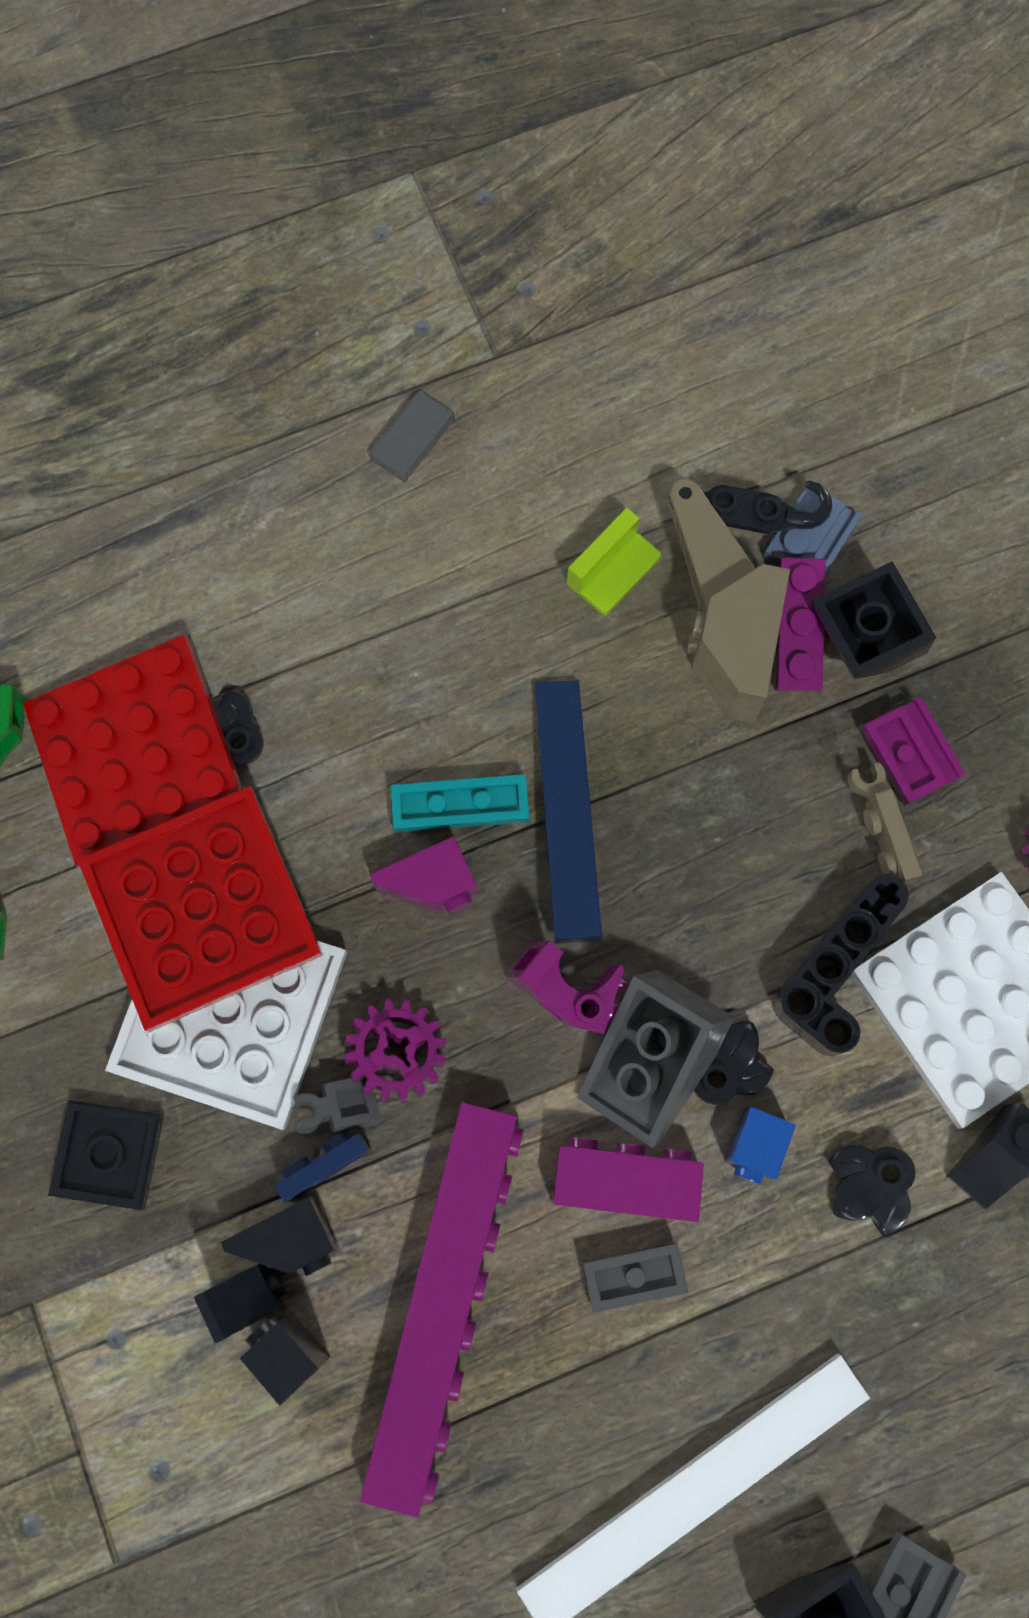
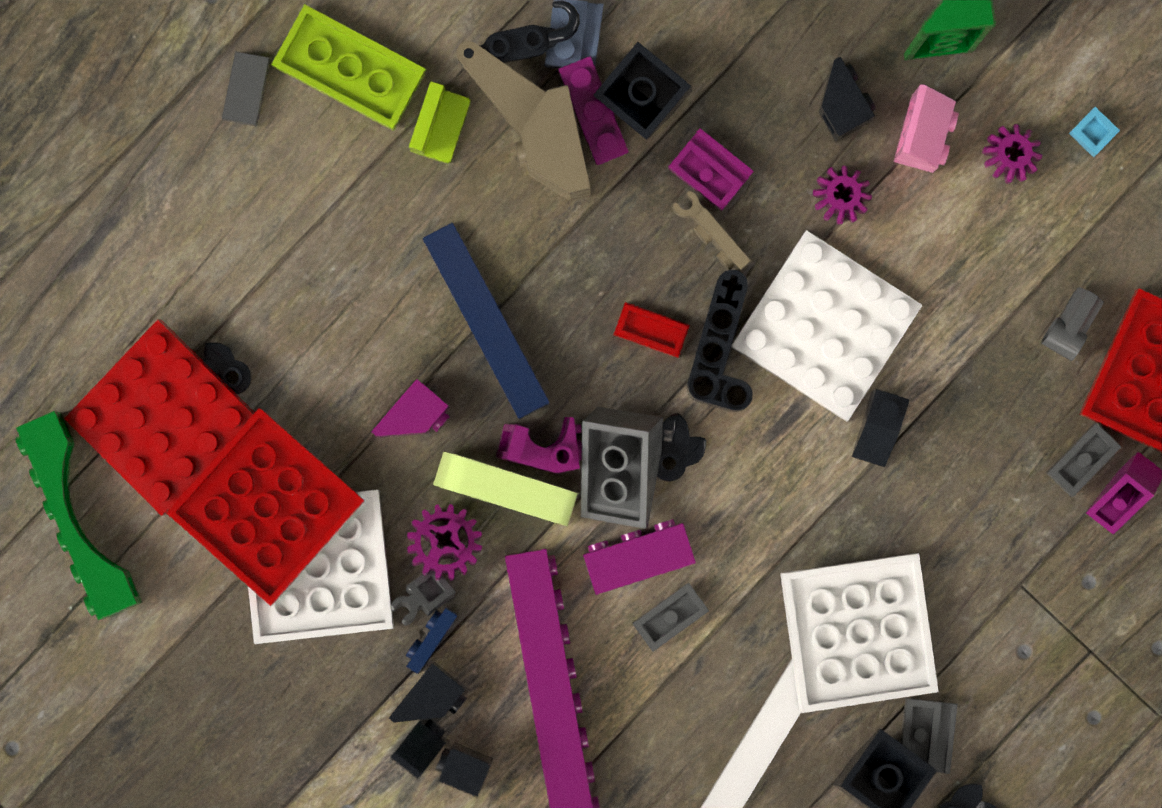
camera: 25 degrees left, 10 degrees up
(106, 1155) = (281, 698): black tile -> none
(459, 803) = (409, 351): teal plate -> none
(501, 1019) = (505, 488): none -> yellowish green beam
(539, 460) = (349, 67): none -> lime plate
(759, 1145) = (716, 494): blue brick -> none
(761, 908) = (651, 330): none -> red tile
(867, 1192) = (802, 491): black plate -> none
(872, 1415) = (859, 632): none -> white plate

